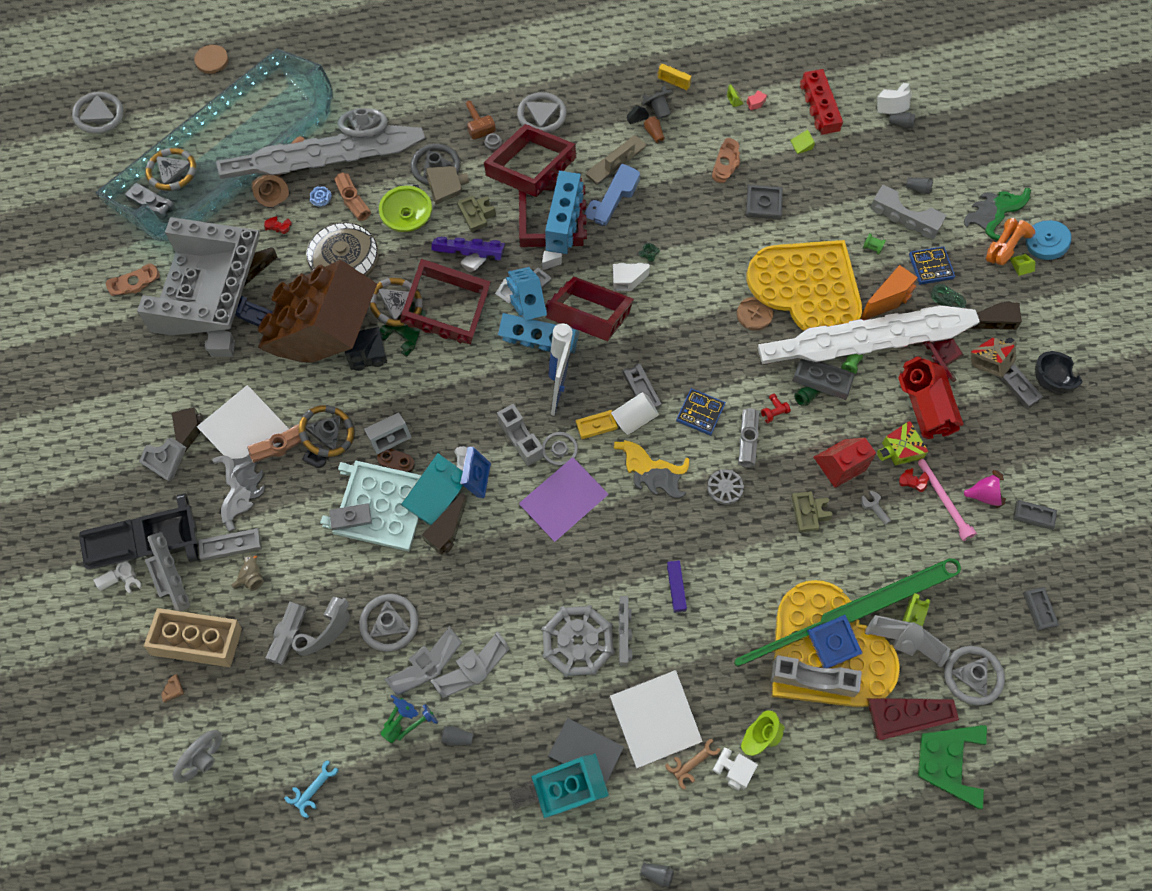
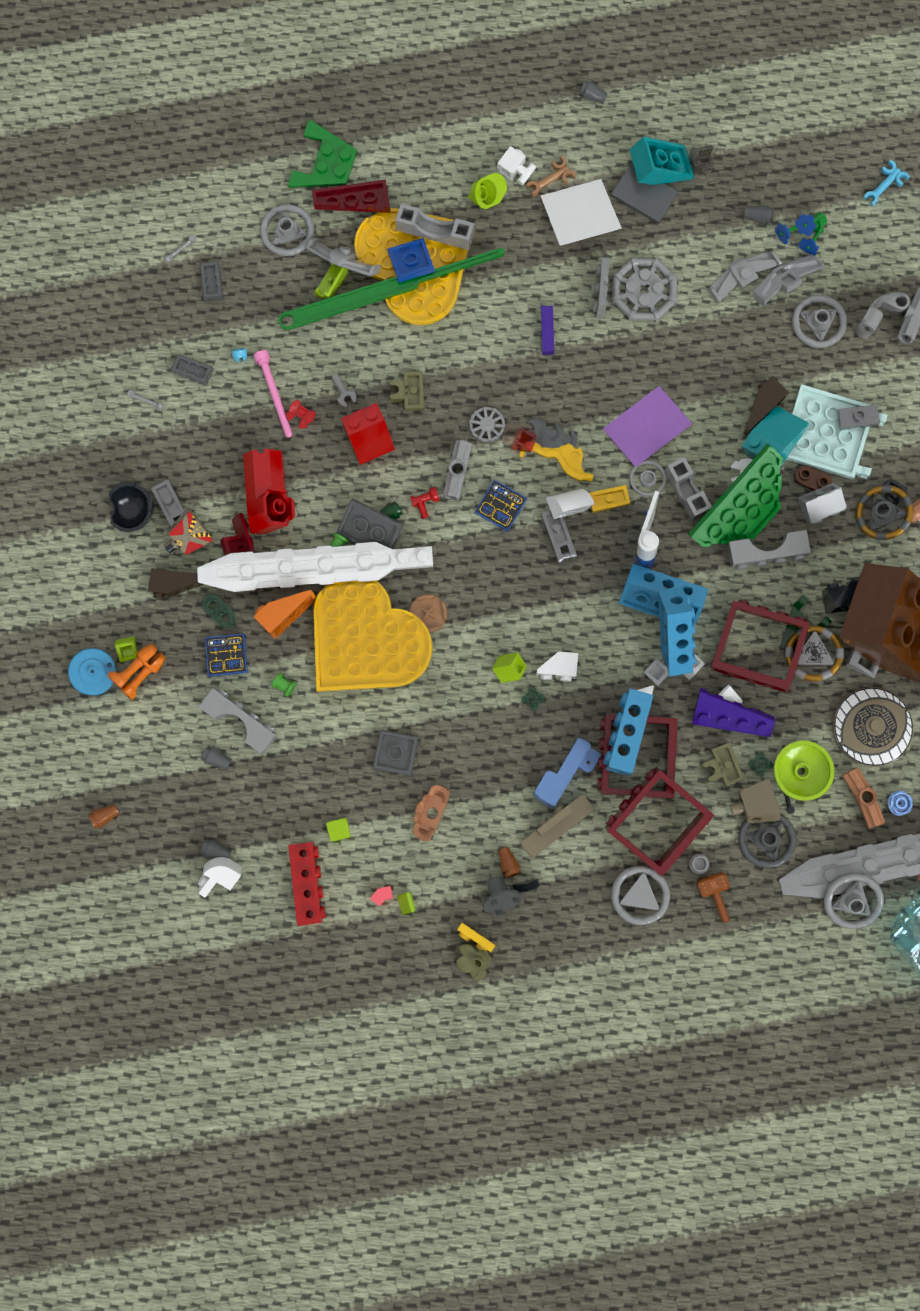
camera: 170 degrees left, 15 degrees up
(417, 392) = (744, 553): none -> light grey arch
(442, 213) = (766, 764): none -> clear green plate
(464, 418) = (746, 504): none -> green plate
(475, 472) = (734, 450): blue tile -> none
(582, 320) = (626, 588): dark red window -> none
(670, 59) = (473, 961): none -> olive plate
(673, 273) = (509, 667): none -> lime panel
(686, 471) = (523, 440): none -> clear red slope
(903, 445) = (305, 448): torso -> none
(988, 490) = (232, 393): dark pink hat -> none
(991, 531) = (239, 353): none -> medium azure hinge
(992, 210) = (141, 721): piece -> none
(1005, 136) = (103, 815): none -> dark orange cone
(1057, 479) = (131, 394): none -> light grey hinge
(1074, 656) = (168, 258): none -> light grey hinge

